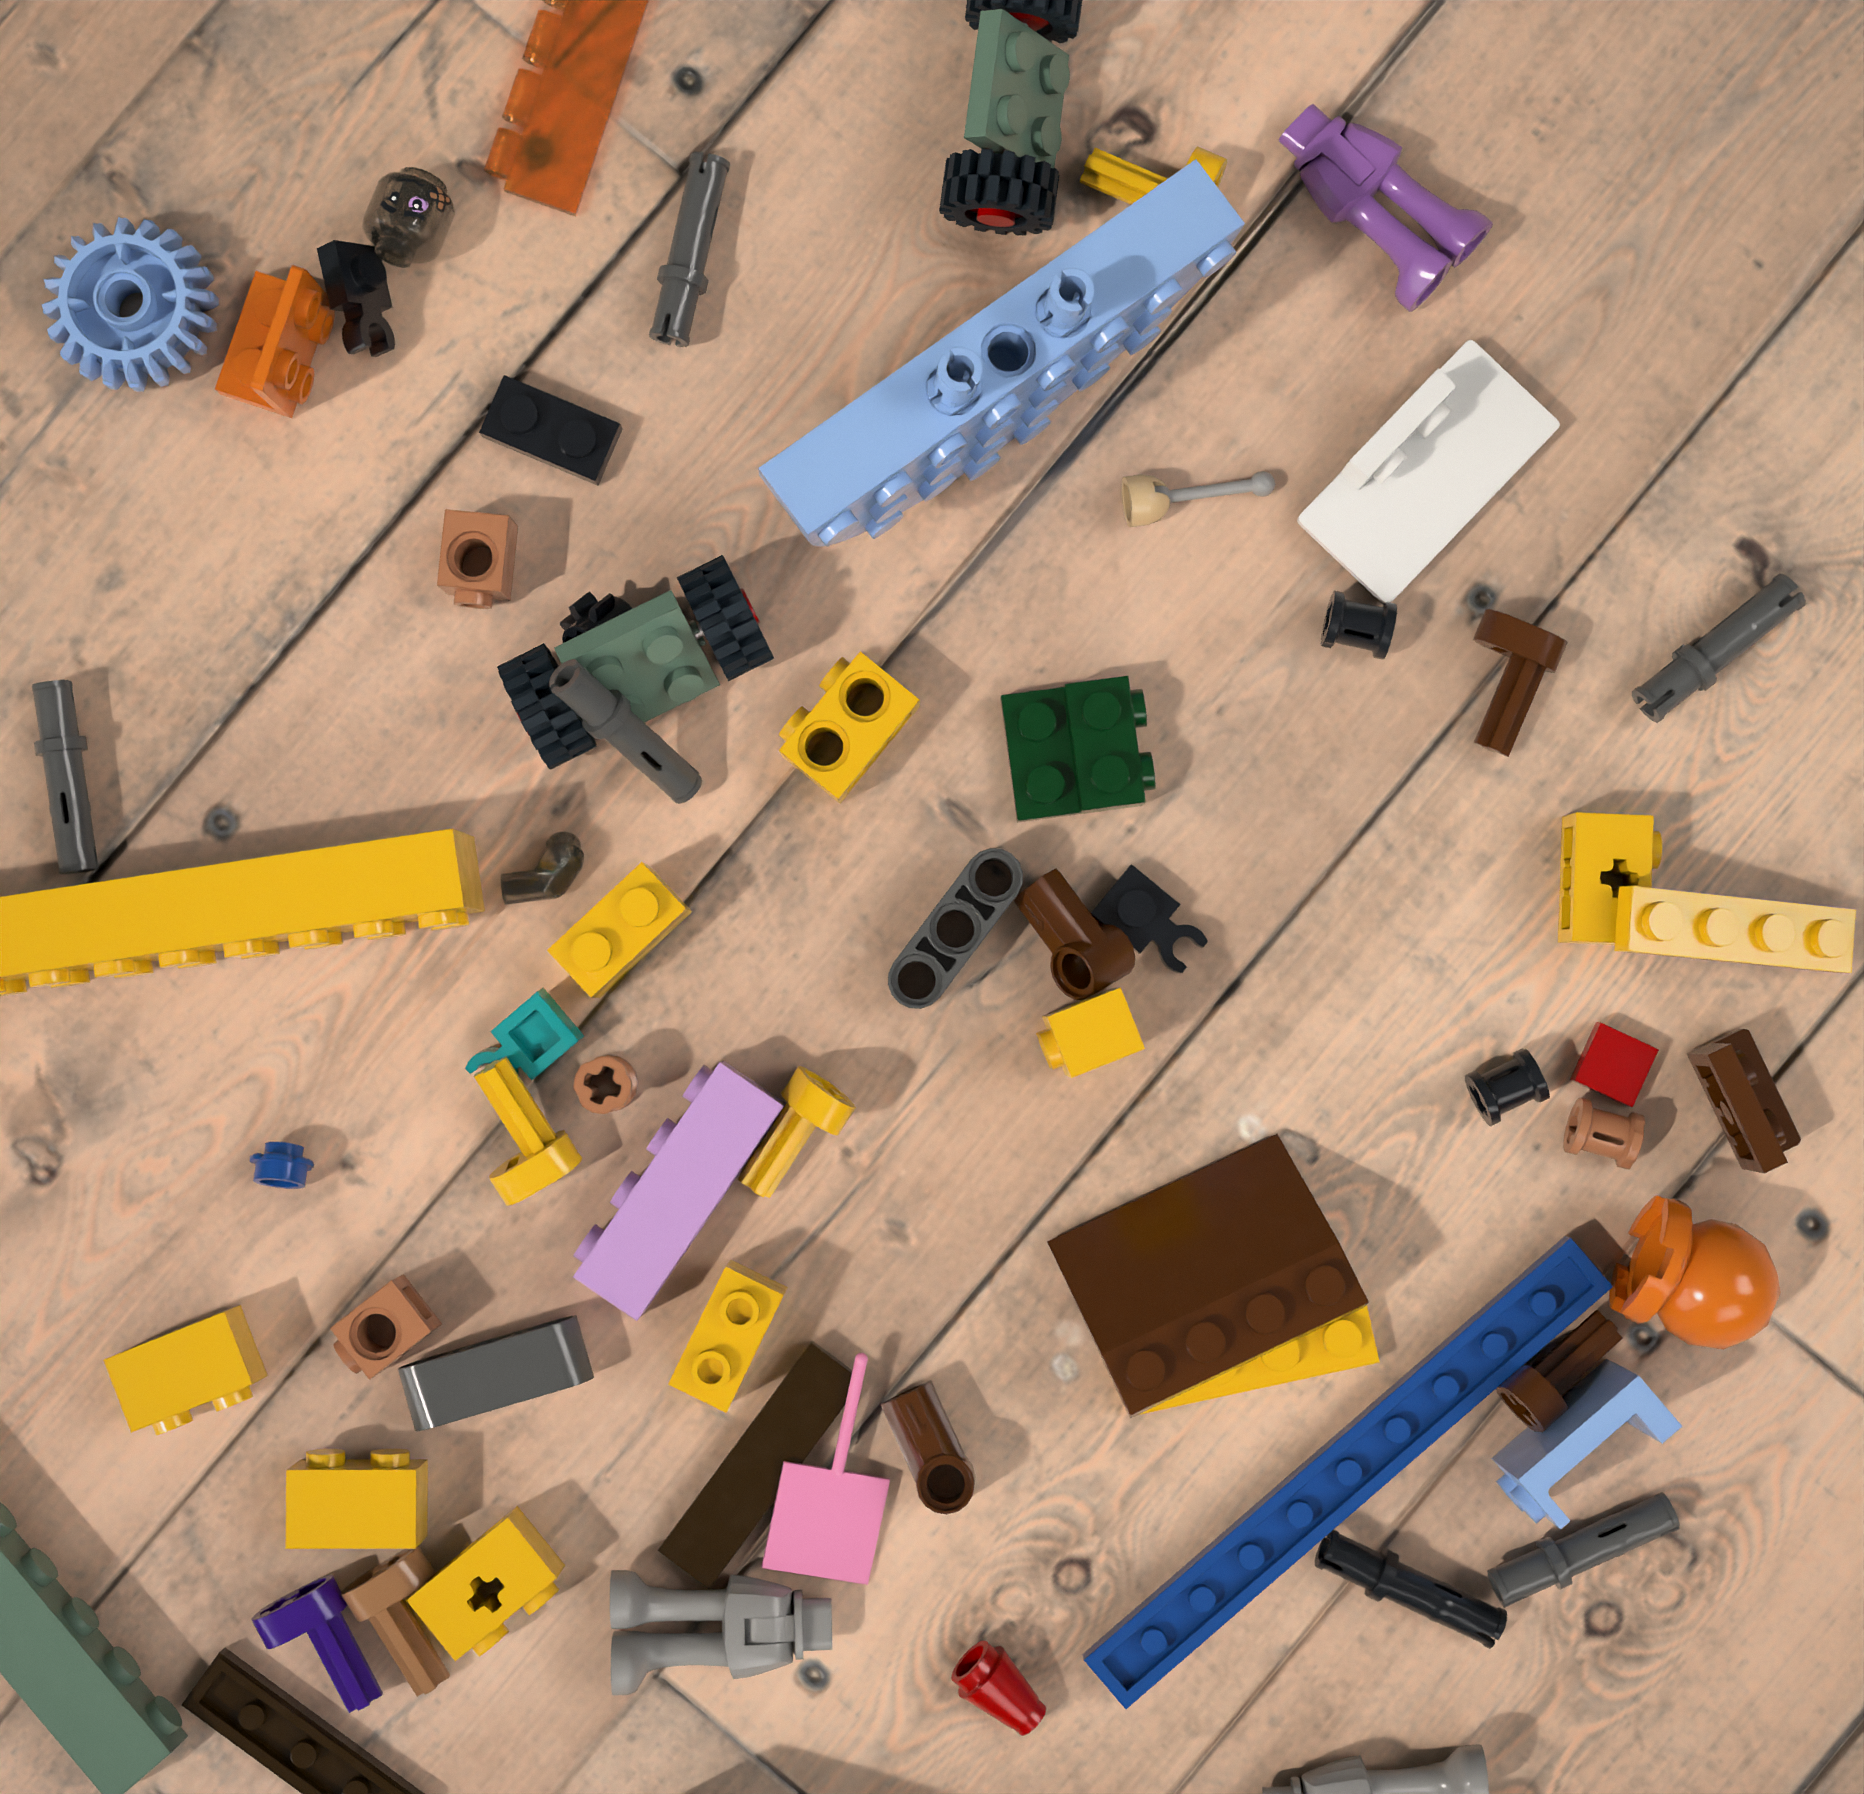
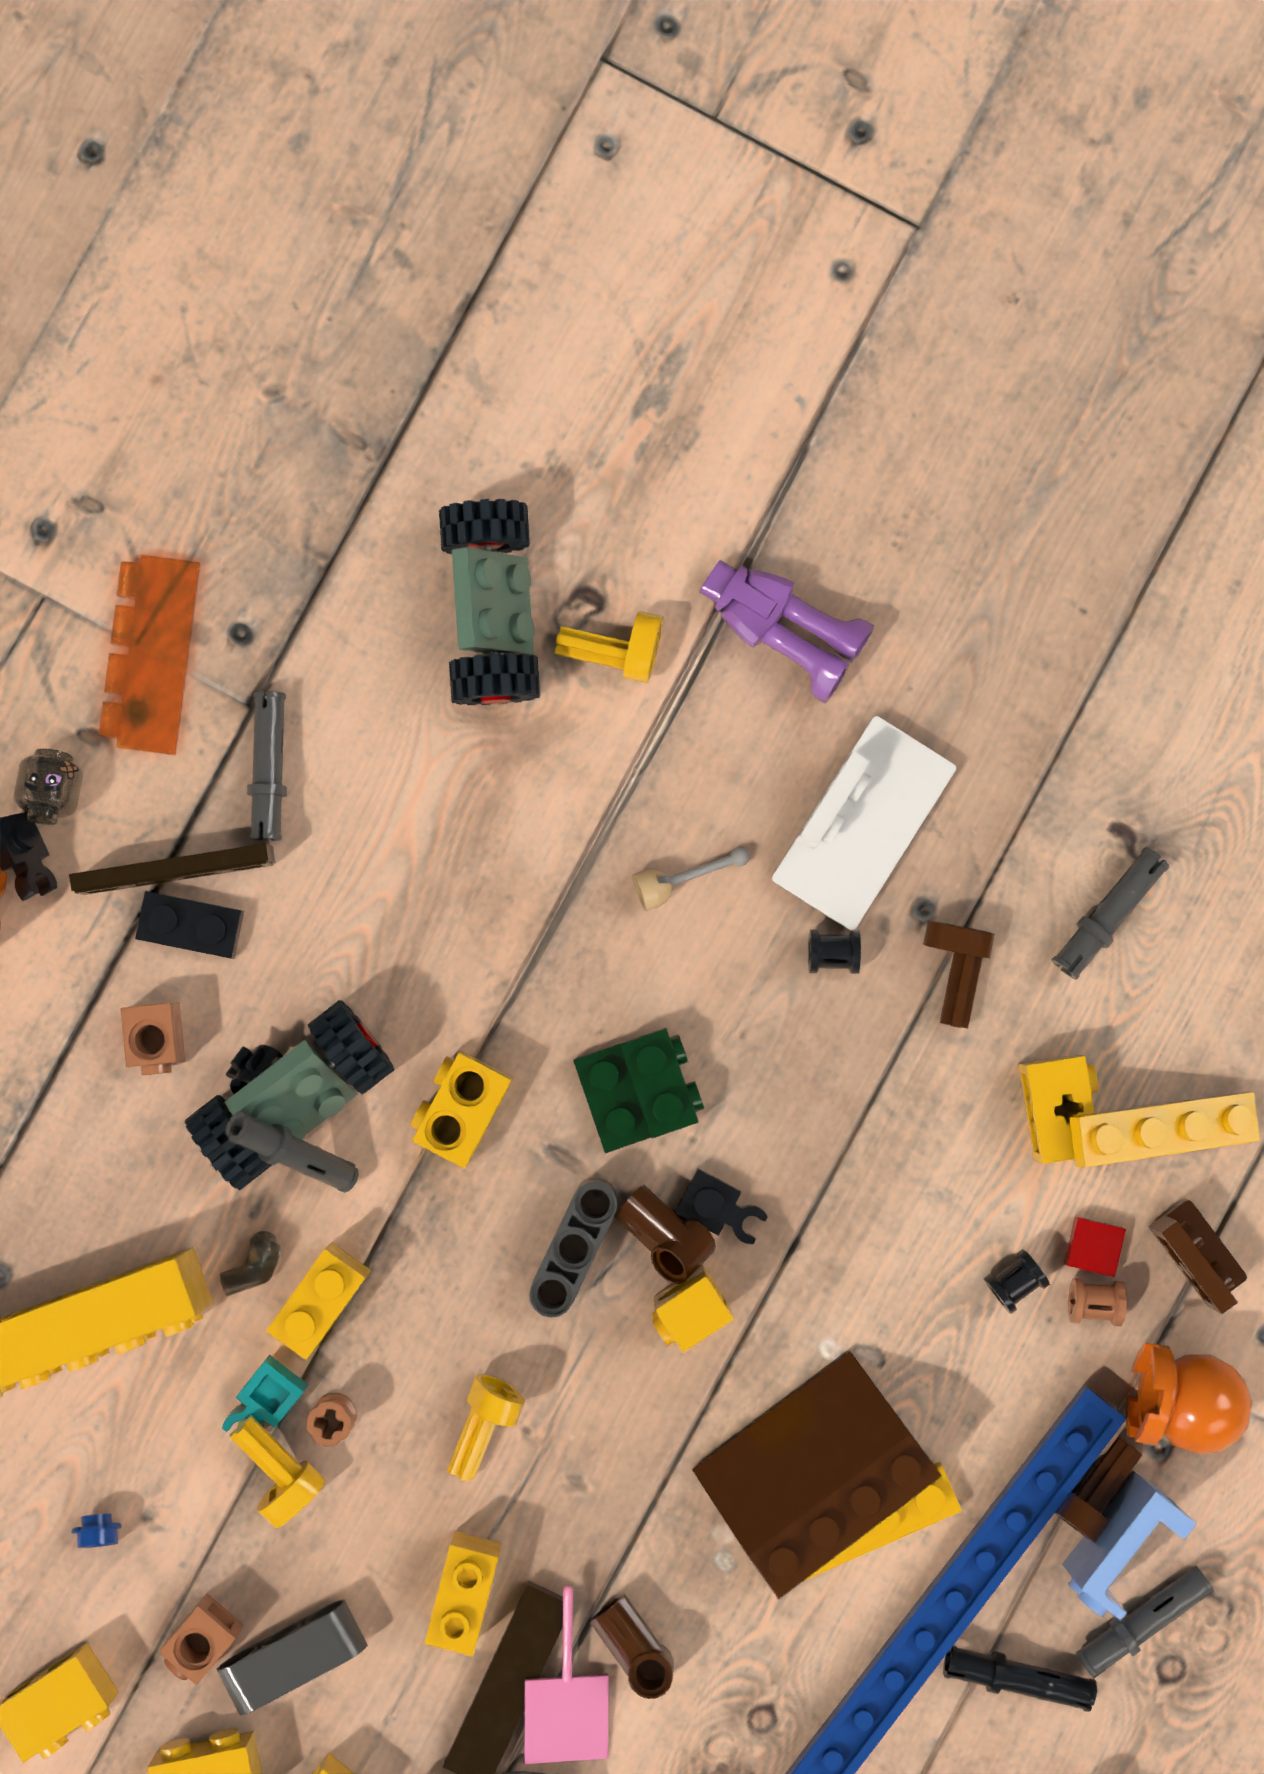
camera: 15 degrees left, 0 degrees up
(544, 353) = (172, 869): none -> dark brown tile
(679, 1188) = (403, 1489): lavender brick -> none
(1005, 366) = (520, 829): light blue brick -> none

